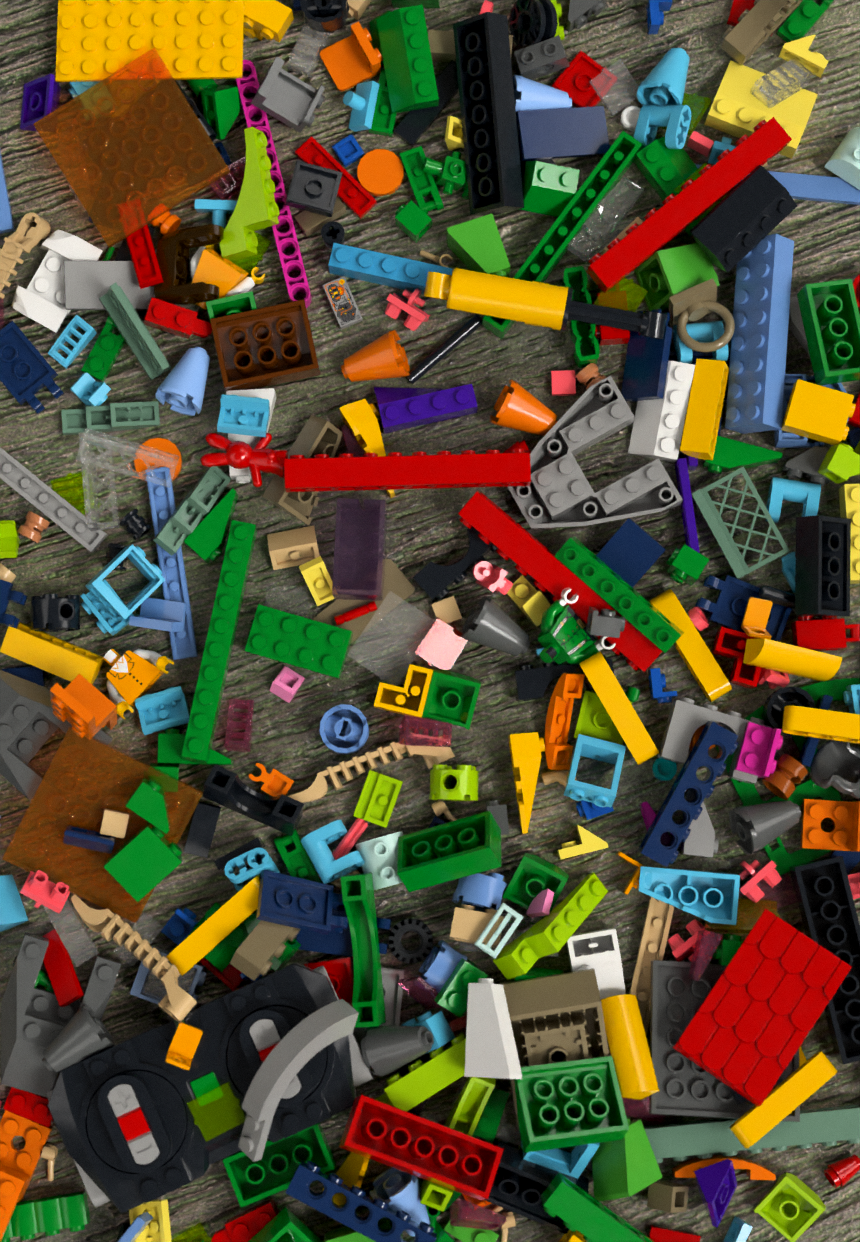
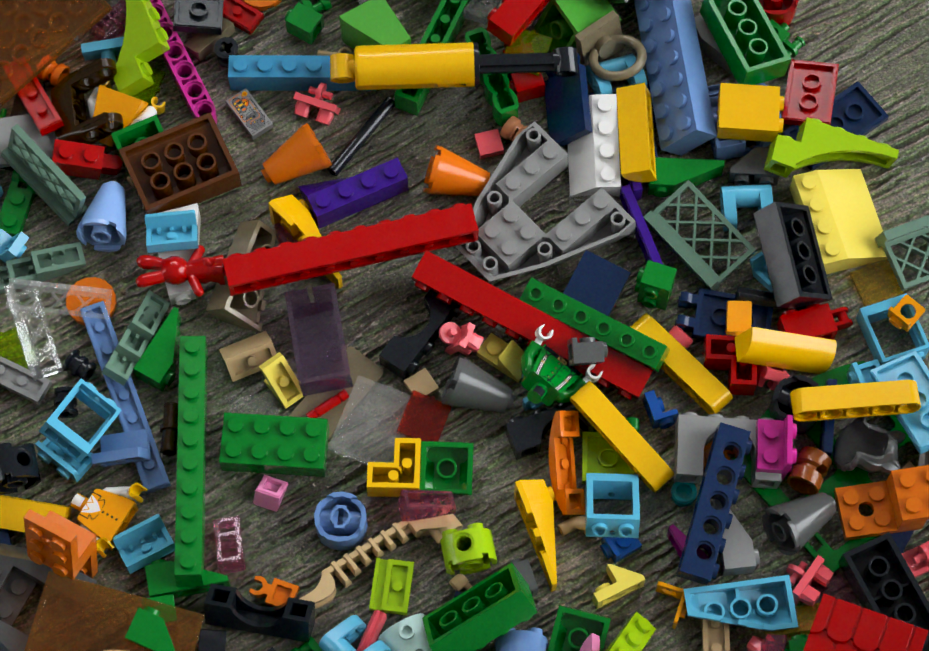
camera: 15 degrees left, 15 degrees down
(206, 604) = (169, 429): none -> dark brown pin

